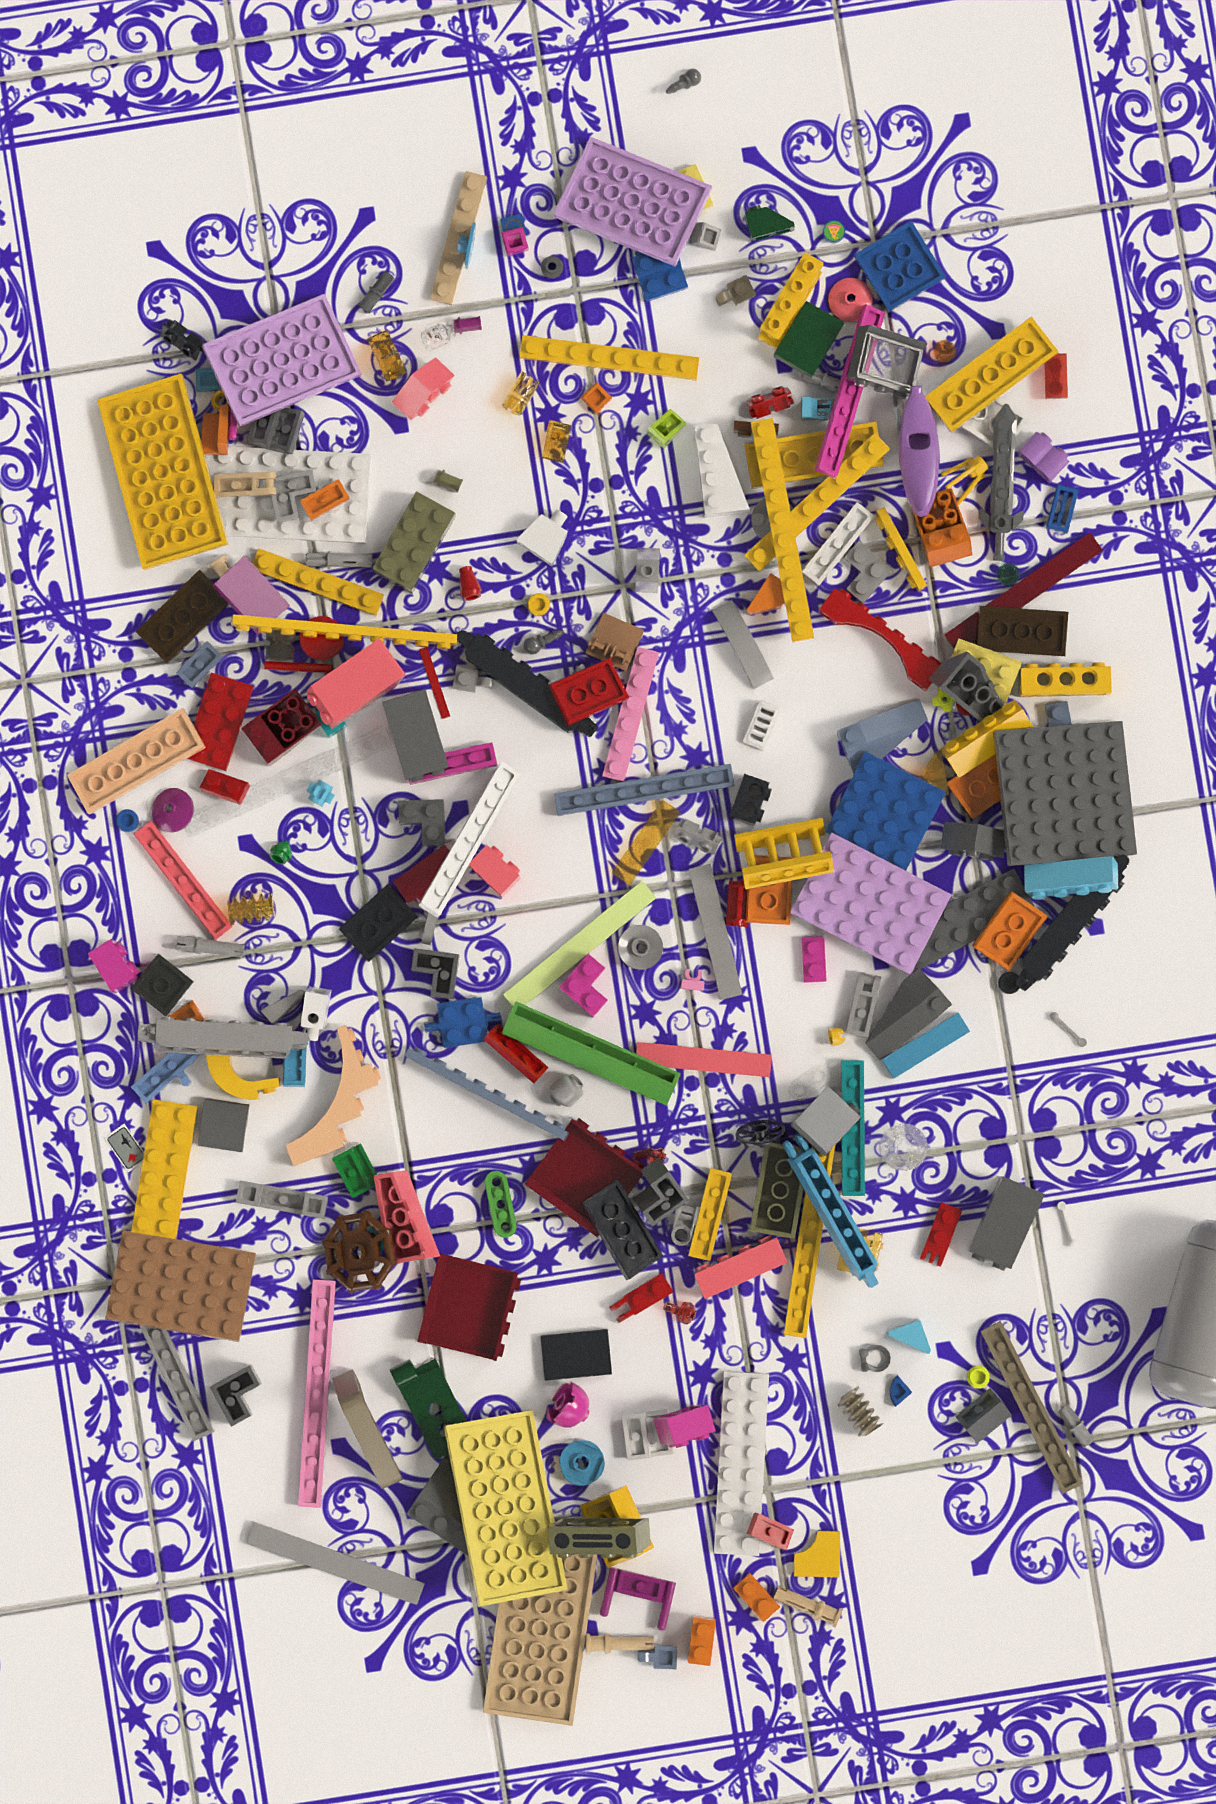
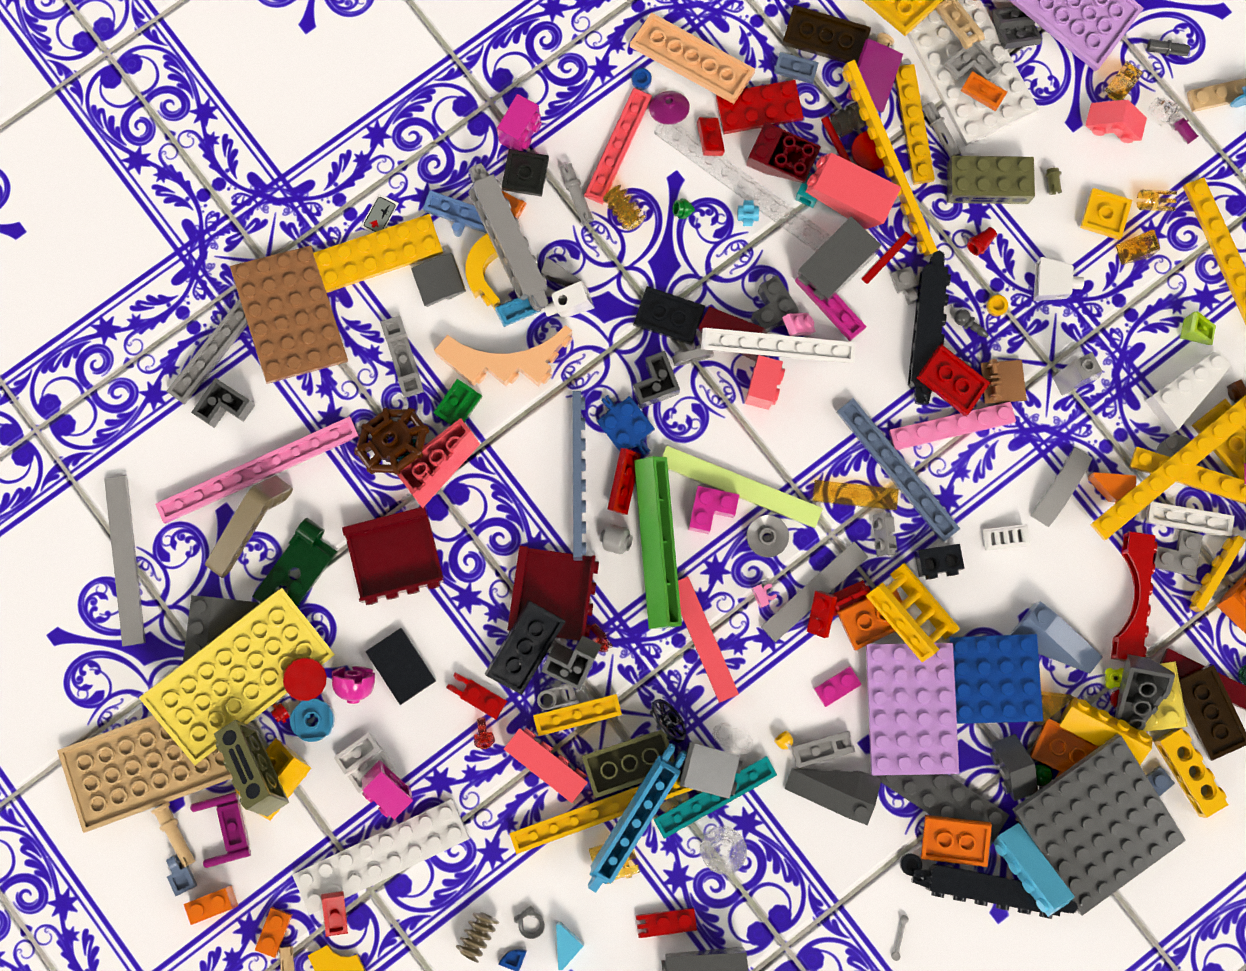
camera: 55 degrees right, 5 degrees down
(456, 806) = (799, 324): none -> bright pink plate
(500, 1193) = (483, 538): bright green plate -> none
(507, 450) = (1106, 213): none -> yellow plate
(541, 1449) = (304, 679): none -> red tile
(559, 1489) = (279, 713): none -> red plate
(596, 398) = (1188, 262): orange tile -> none
(740, 937) = (821, 614): none -> red plate
(925, 1045) = (818, 821): dark azure tile -> none
(993, 818) = (1043, 775): none -> green plate

